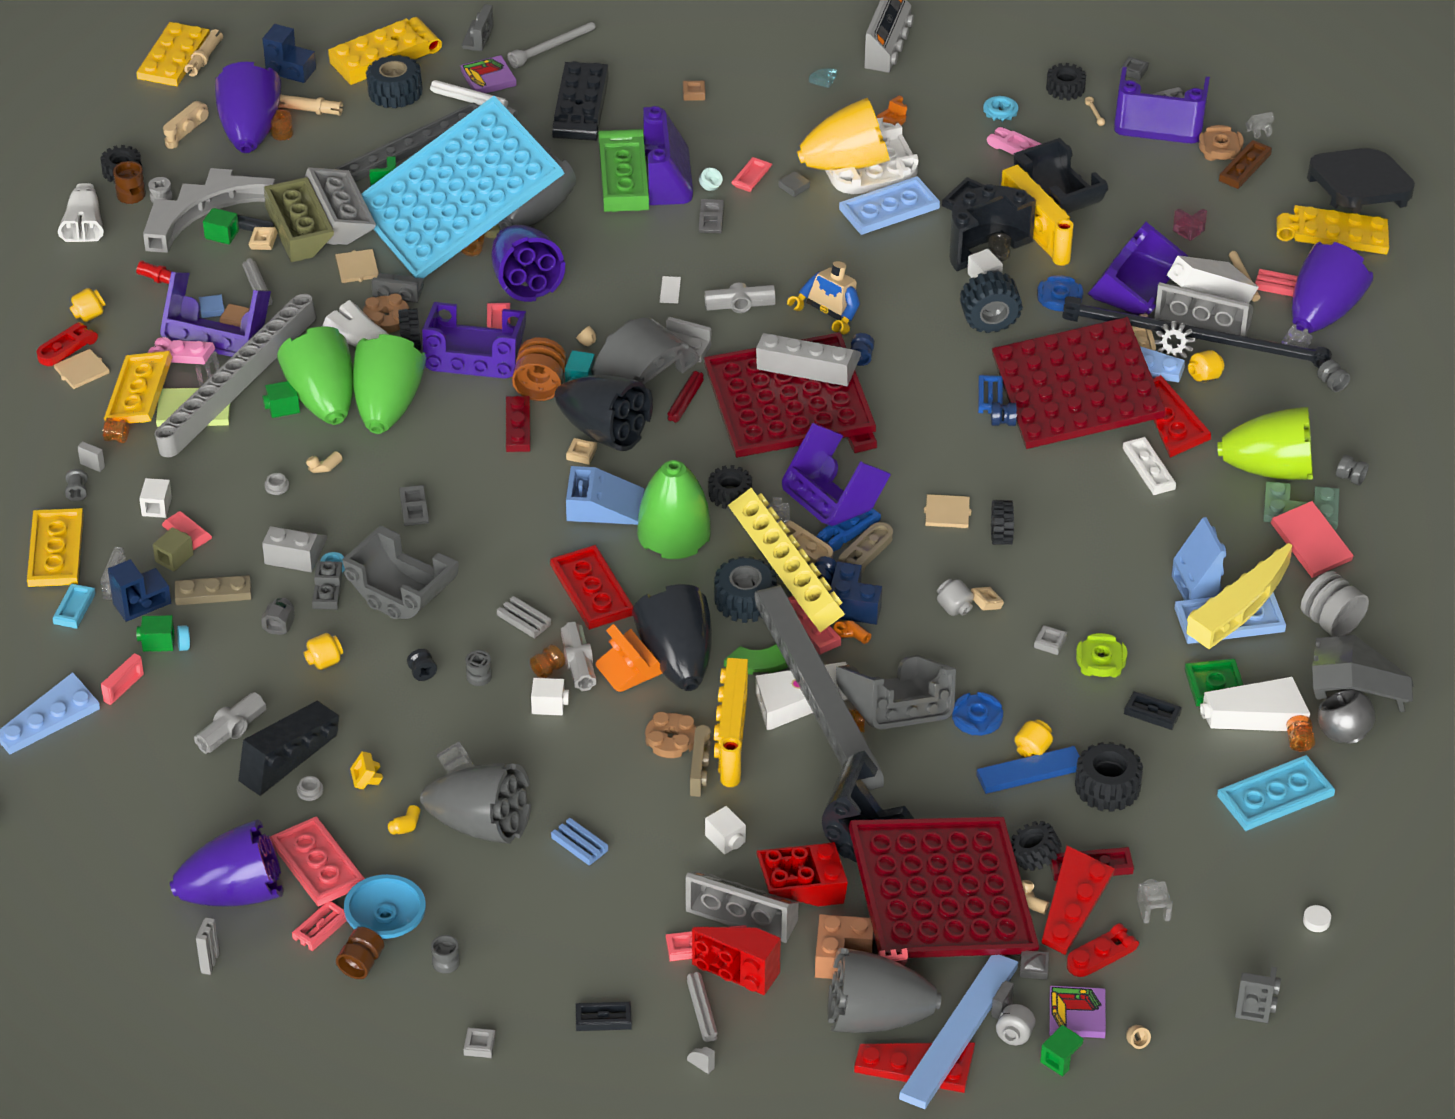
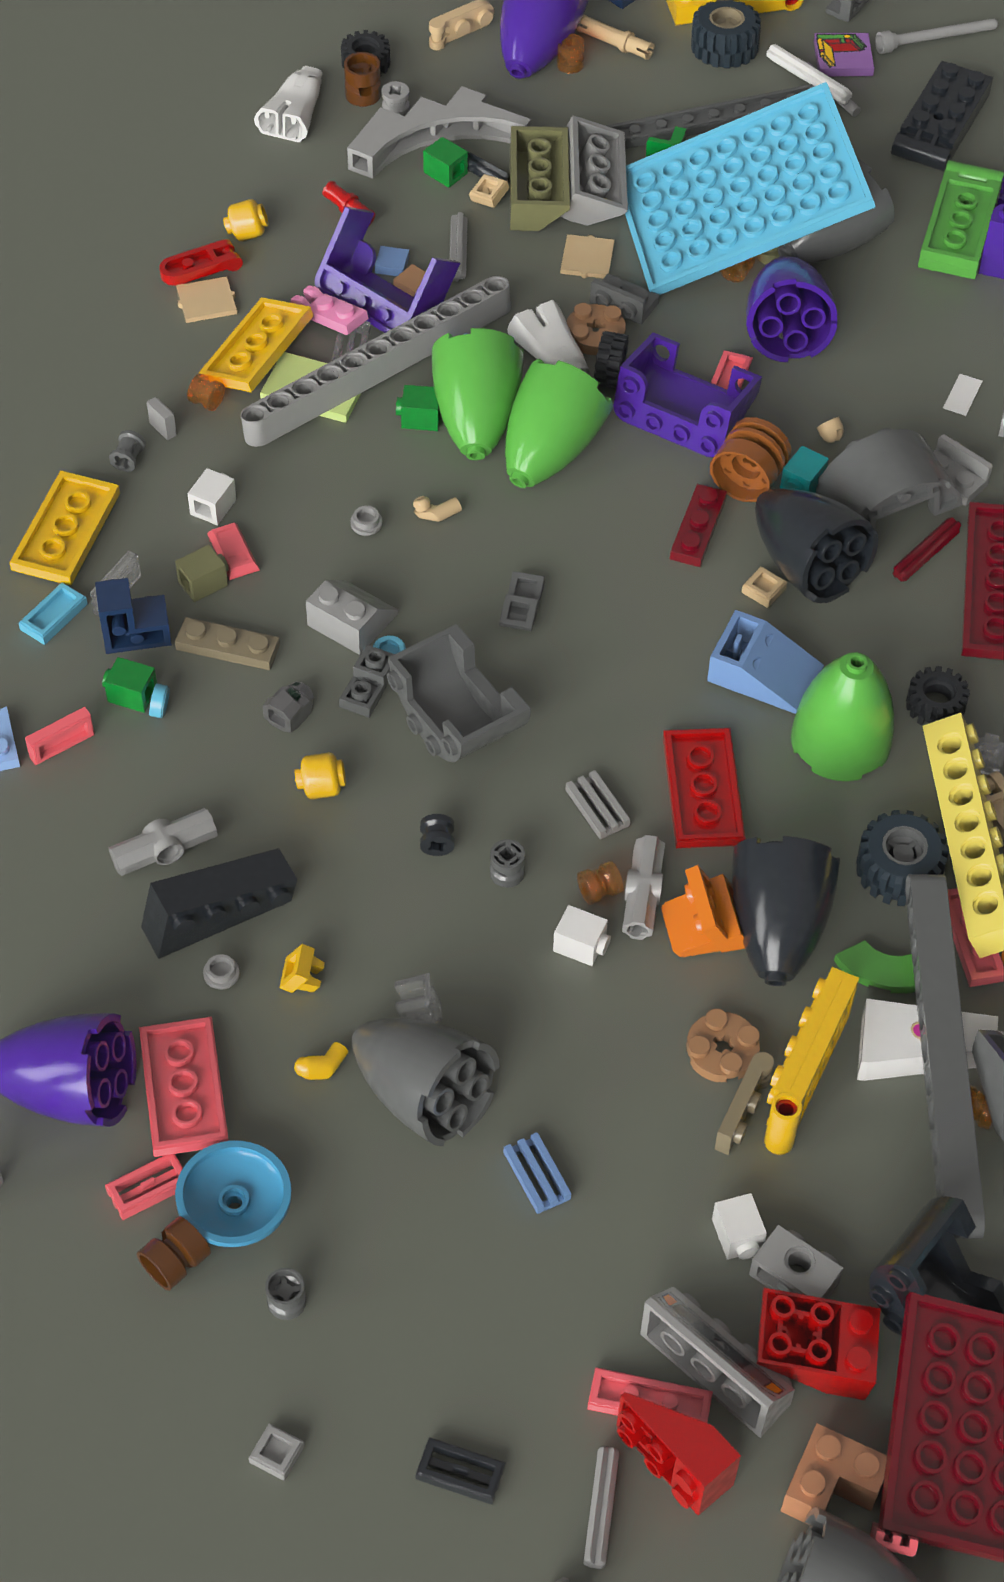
camera: 20 degrees right, 10 degrees up
(768, 835) = (789, 1248): none -> light grey brick

